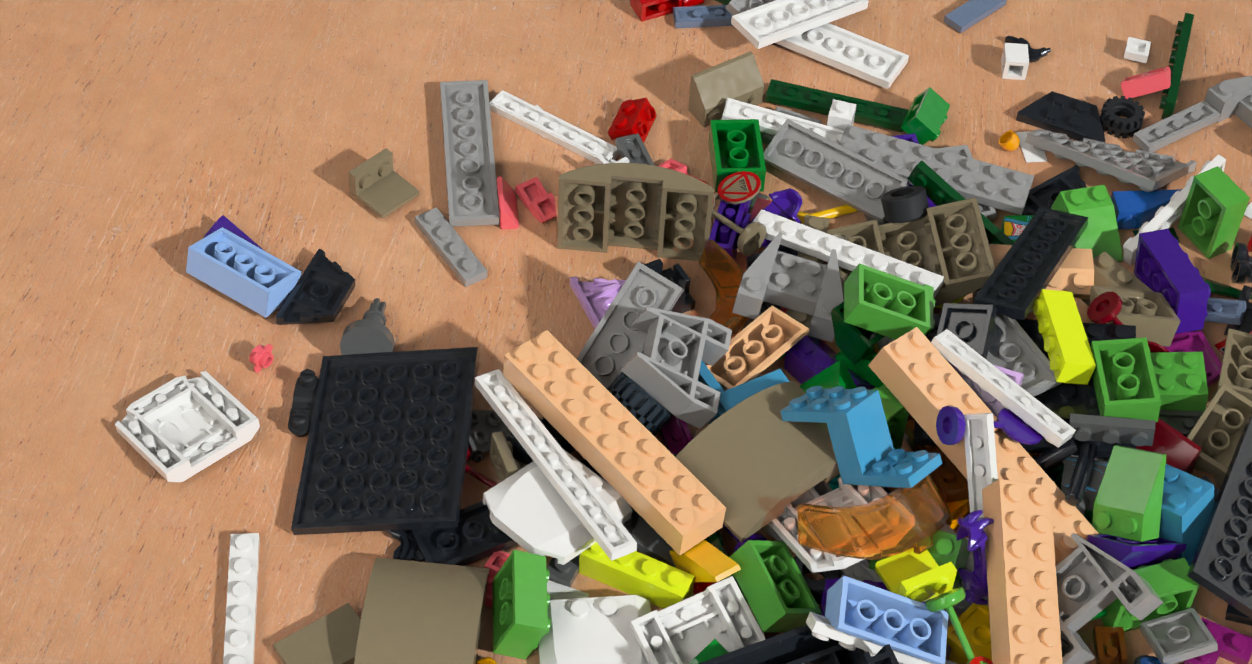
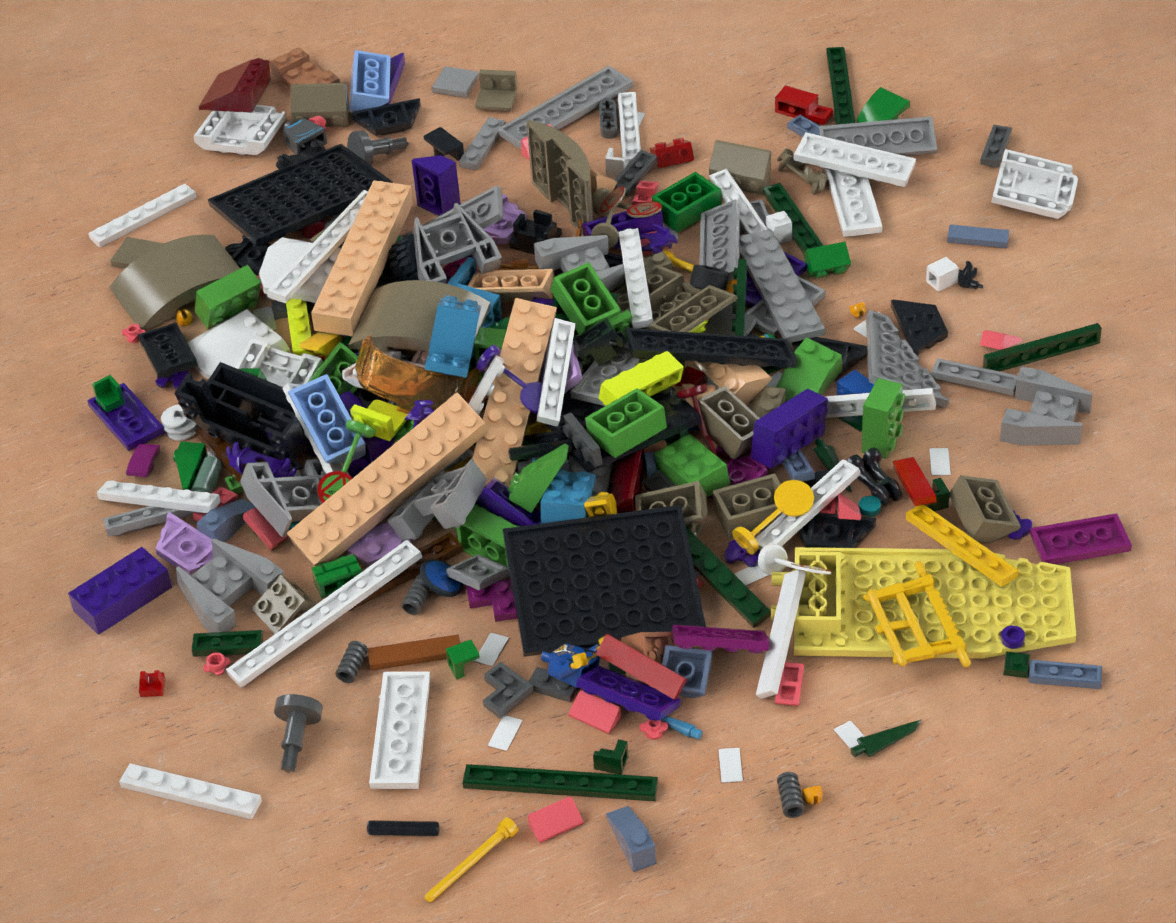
camera: 60 degrees right, 5 degrees down
(108, 387) = (238, 87): none -> dark red slope
(149, 320) = (298, 69): none -> nougat piece
(236, 332) = (322, 100): none -> dark tan slope
(268, 381) = (301, 134): none -> dark grey torso
(314, 207) = (455, 82): none -> light grey tile
(428, 272) = (444, 143): none -> black panel
(519, 313) = (436, 183): none -> dark purple slope
(534, 141) = (604, 123): none -> dark grey beam
(790, 54) = (817, 181): none -> dark tan piece
(1122, 107) = (951, 339): black tyre -> none
(1137, 50) = (1035, 324): white plate -> none
(1217, 471) = (601, 504): none -> yellow slope

